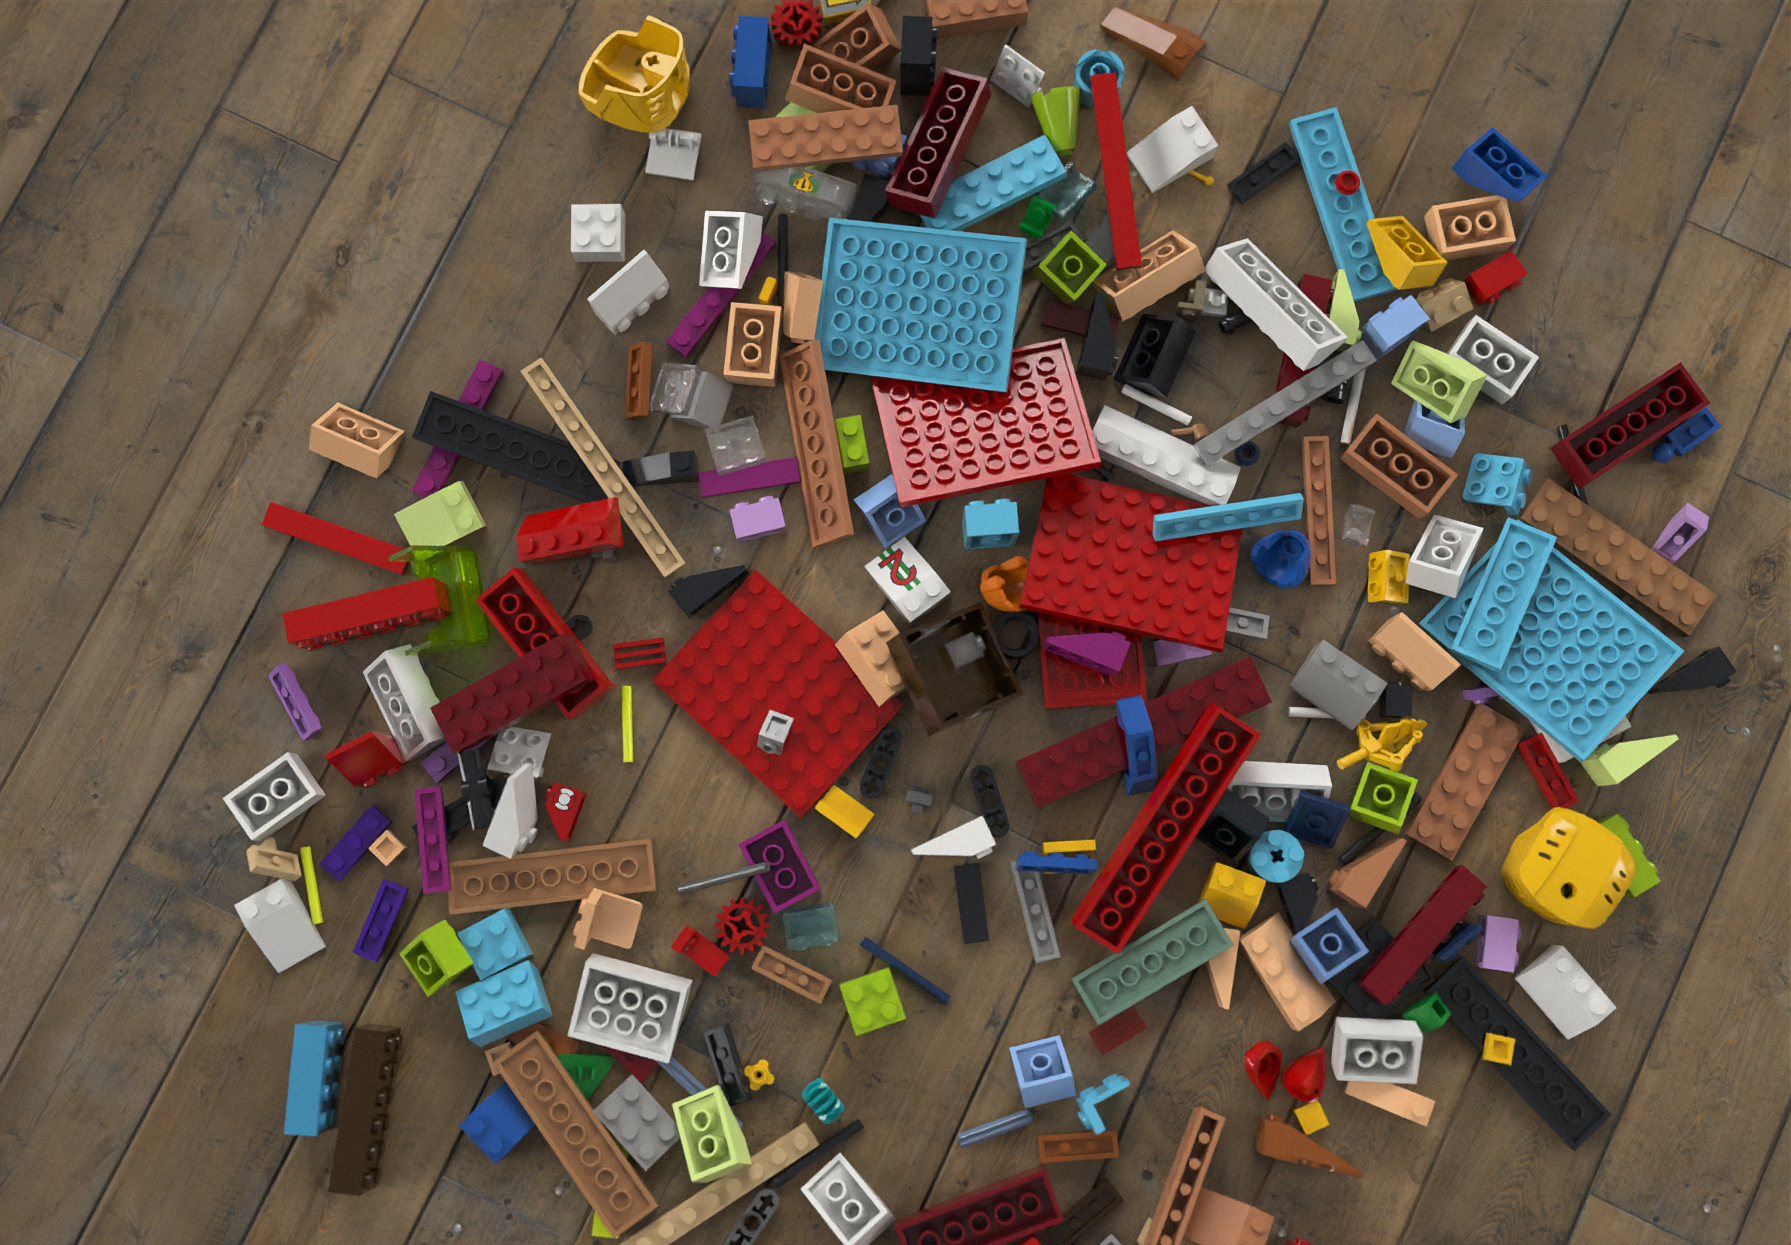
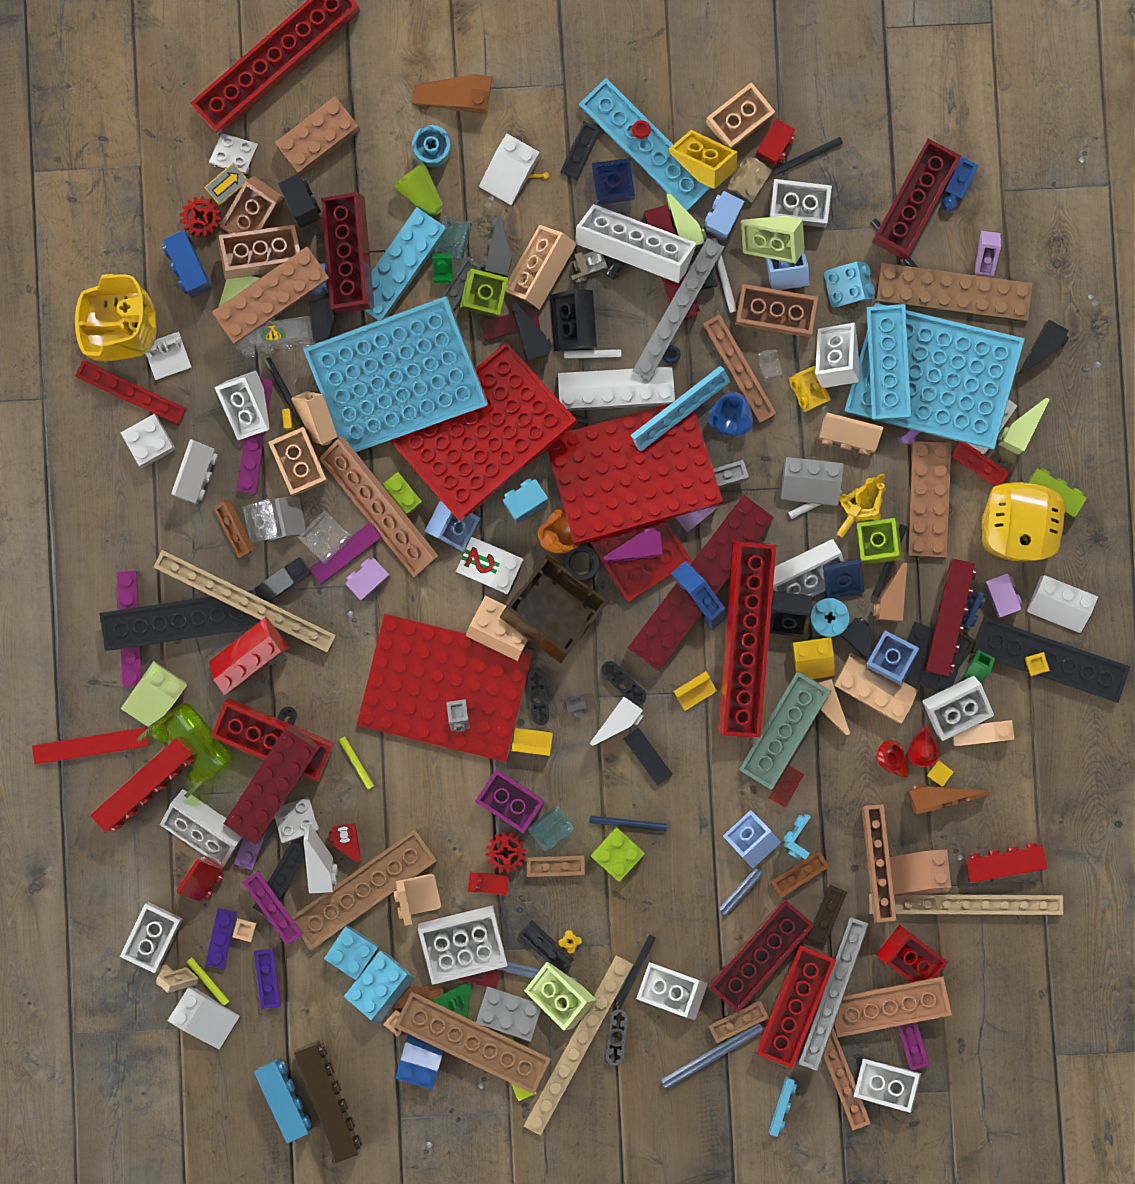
camera: 25 degrees left, 5 degrees up
(295, 701) = (127, 869): medium lavender plate -> none
(355, 440) = (65, 672): light nougat slope -> none
(436, 957) = (319, 981): lime brick -> none
(476, 788) = (282, 859): black piece -> none
(610, 172) = (130, 392): none -> red tile
(618, 656) = (324, 721): red tile -> none
(701, 589) = (355, 647): black slope -> none
(724, 877) = (477, 828): dark grey bar -> none
(823, 1101) = (620, 935): teal gear -> none
(965, 649) = (554, 592): clear bracket -> none
(1017, 76) = (375, 175): white hinge -> none
(1036, 914) = (691, 737): light grey tile -> none
(1056, 863) = (689, 700): blue plate -> none
(1115, 171) = (479, 208): red tile -> none
(1199, 431) = (630, 356): medium nougat hand -> none
(1284, 223) = (613, 181): none -> clear blue brick
(1396, 700) = (855, 470): black brick -> none
(1498, 167) = (738, 65): blue slope -> none
(1522, 314) = (806, 156): none -> black bar

